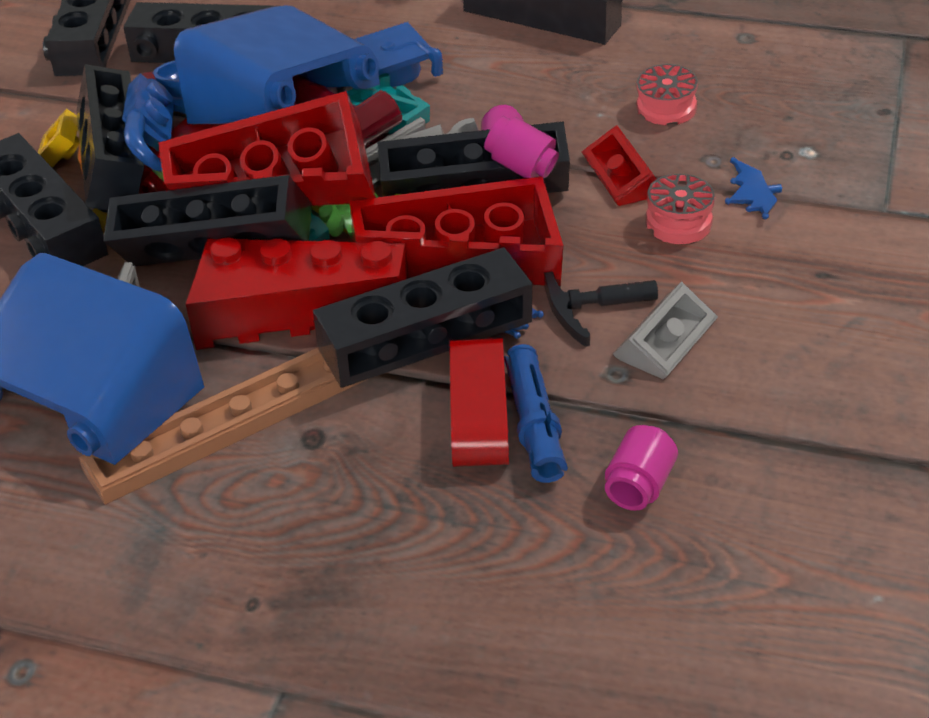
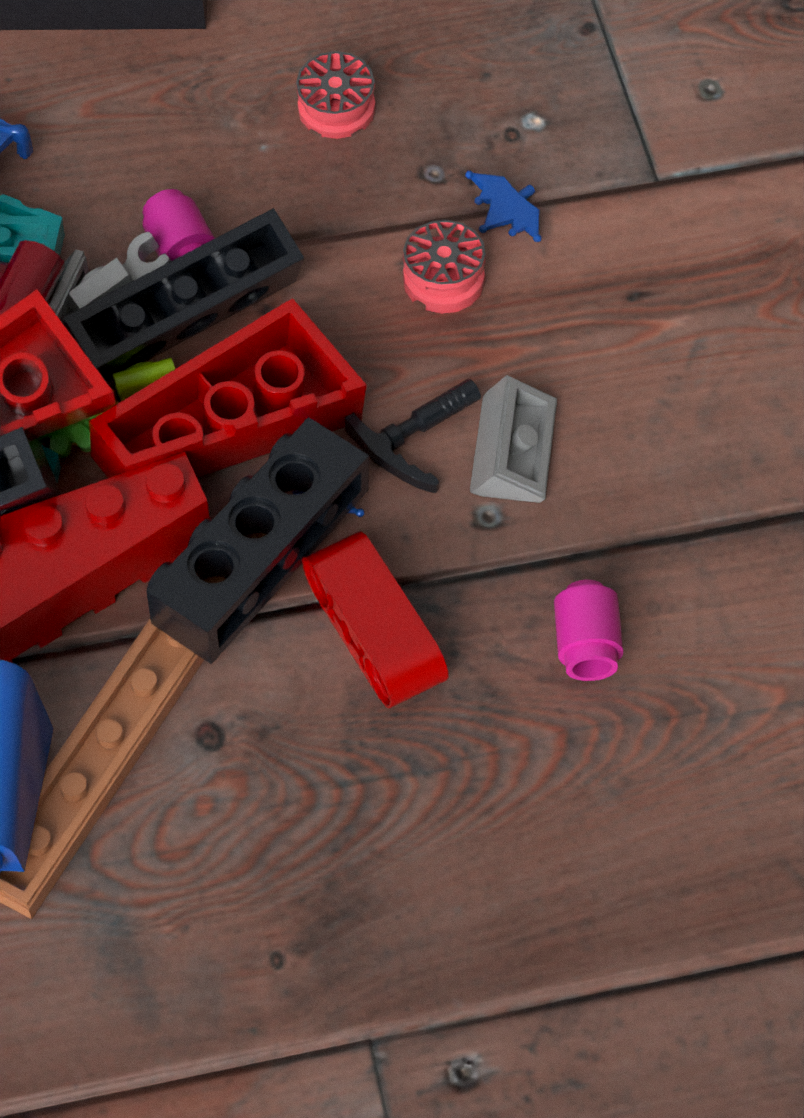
camera: 30 degrees left, 15 degrees up
(521, 148) = (253, 270): dark pink brick -> none
(538, 426) = (454, 624): blue pin -> none
(619, 167) = (340, 226): red slope -> none

